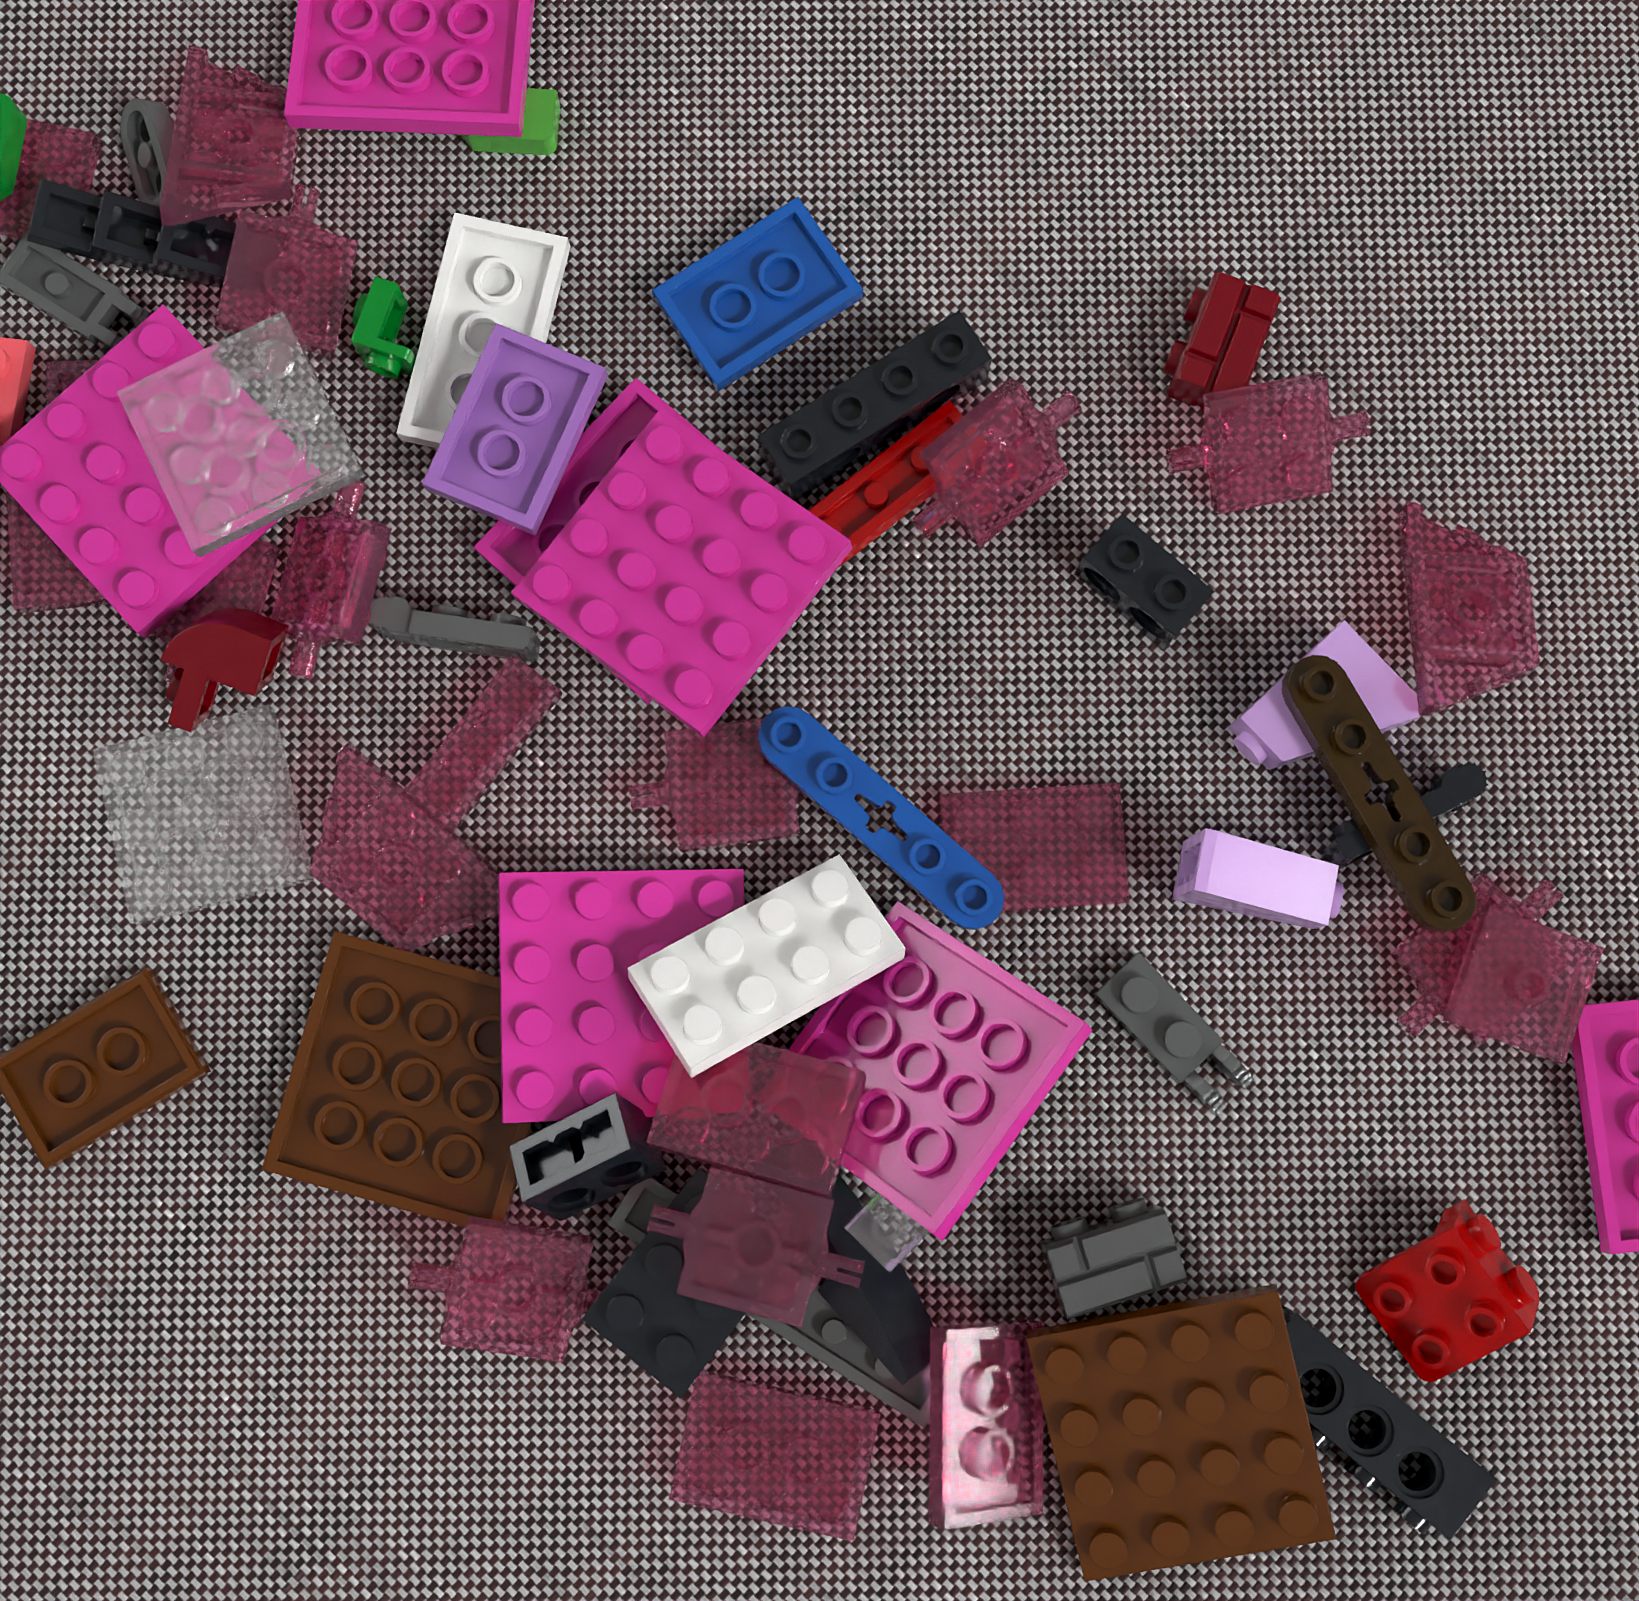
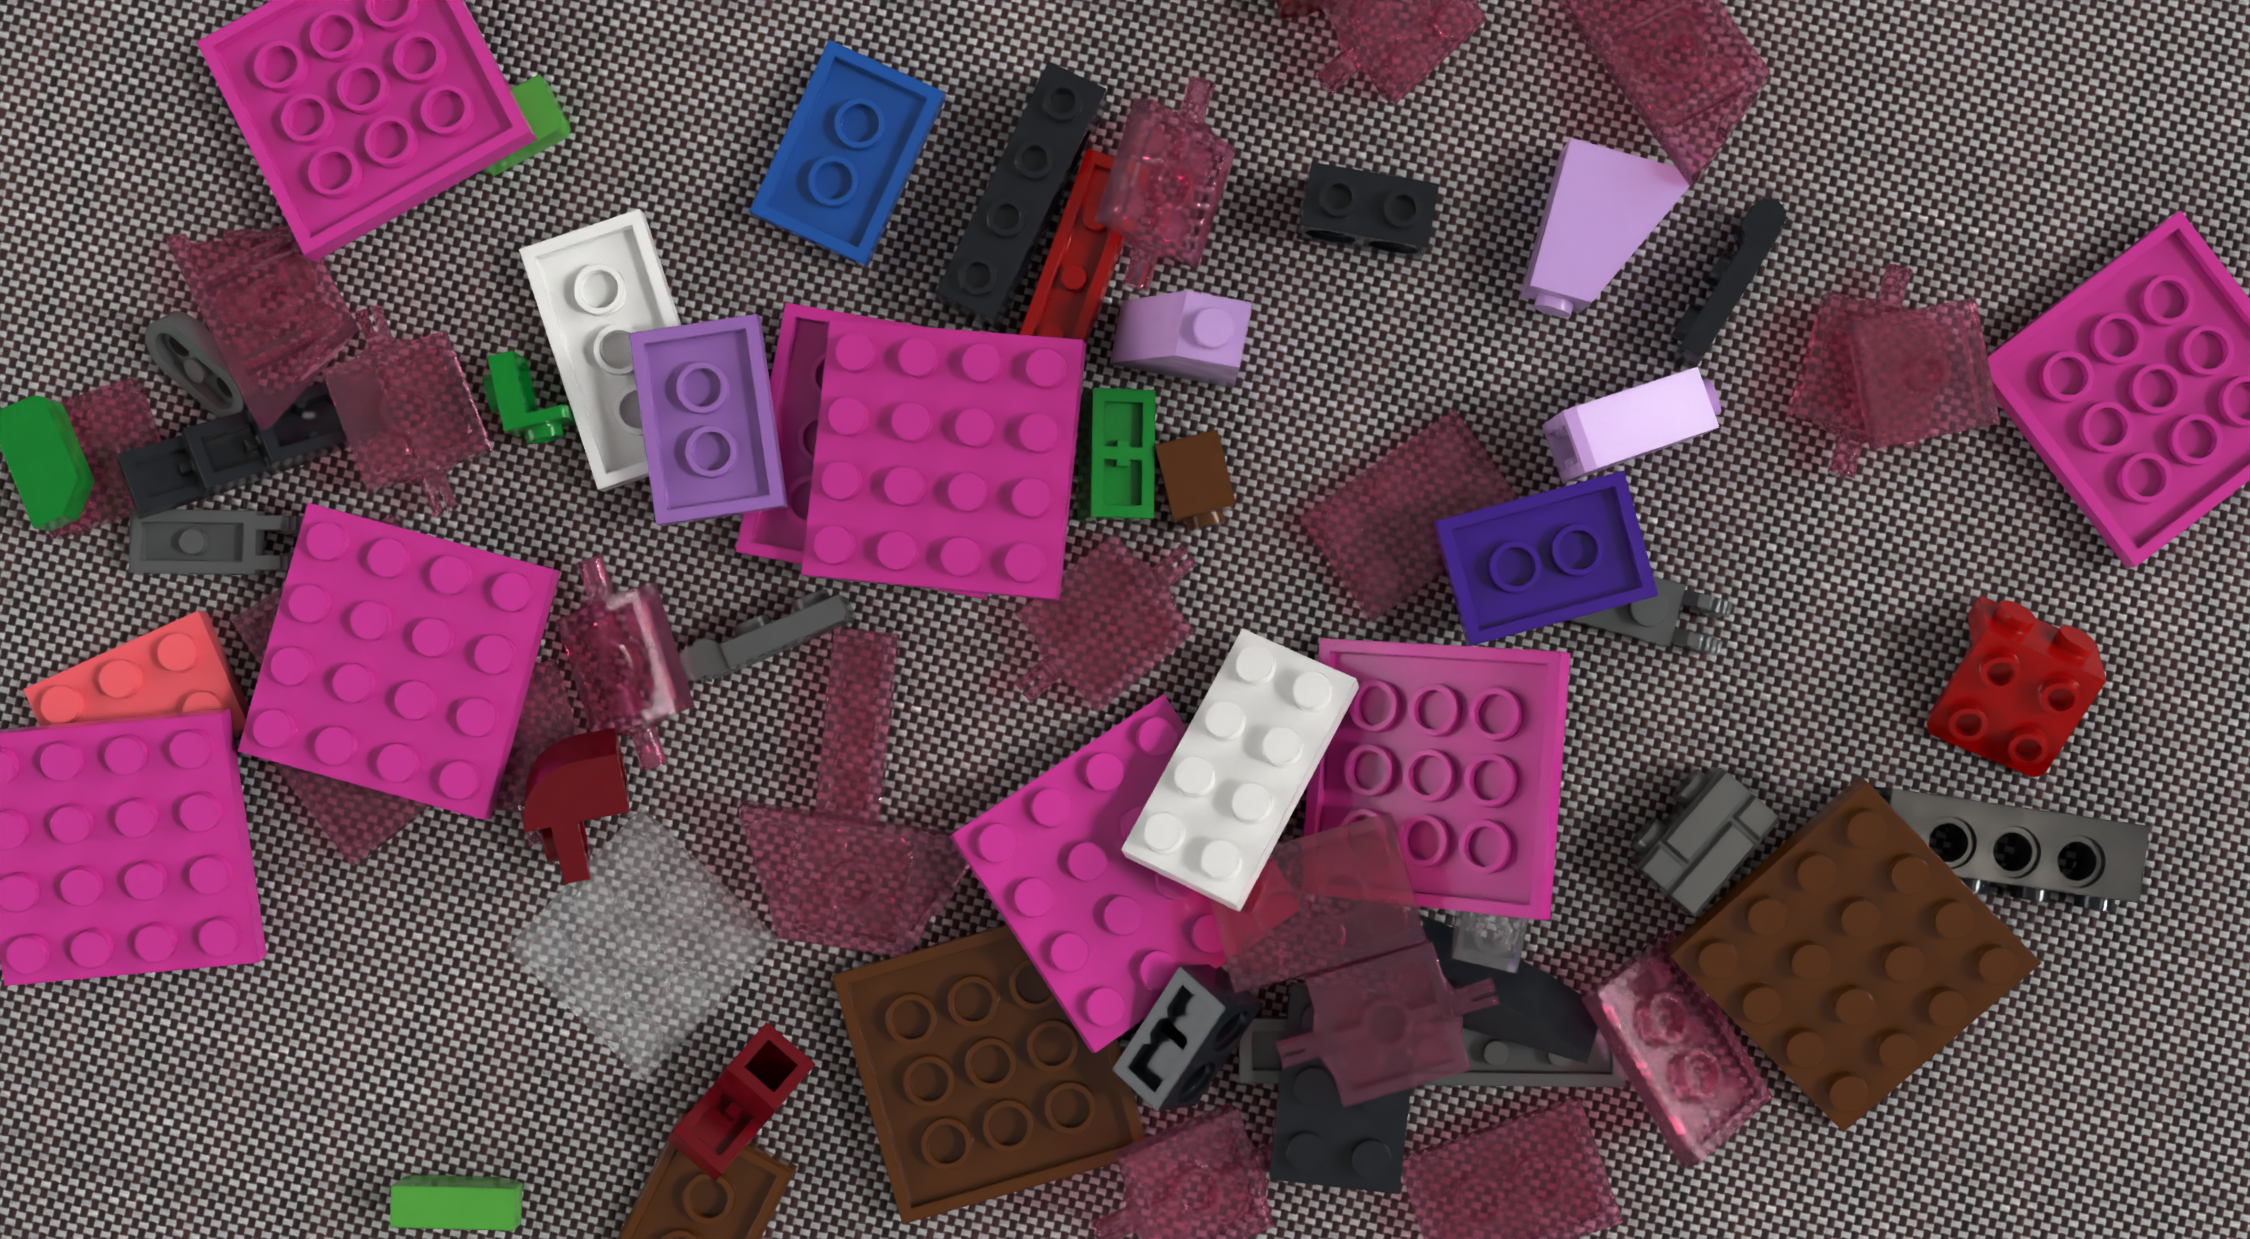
camera: 25 degrees left, 5 degrees up
(195, 988) = (740, 1101): none -> dark red brick
(240, 434) = (464, 582): clear plate -> none
(824, 653) = (1116, 455): none -> green hinge
(874, 712) = (1195, 480): none -> reddish brown brick
(925, 860) = (1324, 584): blue piece -> none
(937, 592) = (1183, 336): none -> lavender slope
(1120, 945) = (1545, 558): none -> dark purple plate
(1408, 849) = (1636, 252): dark brown piece -> none

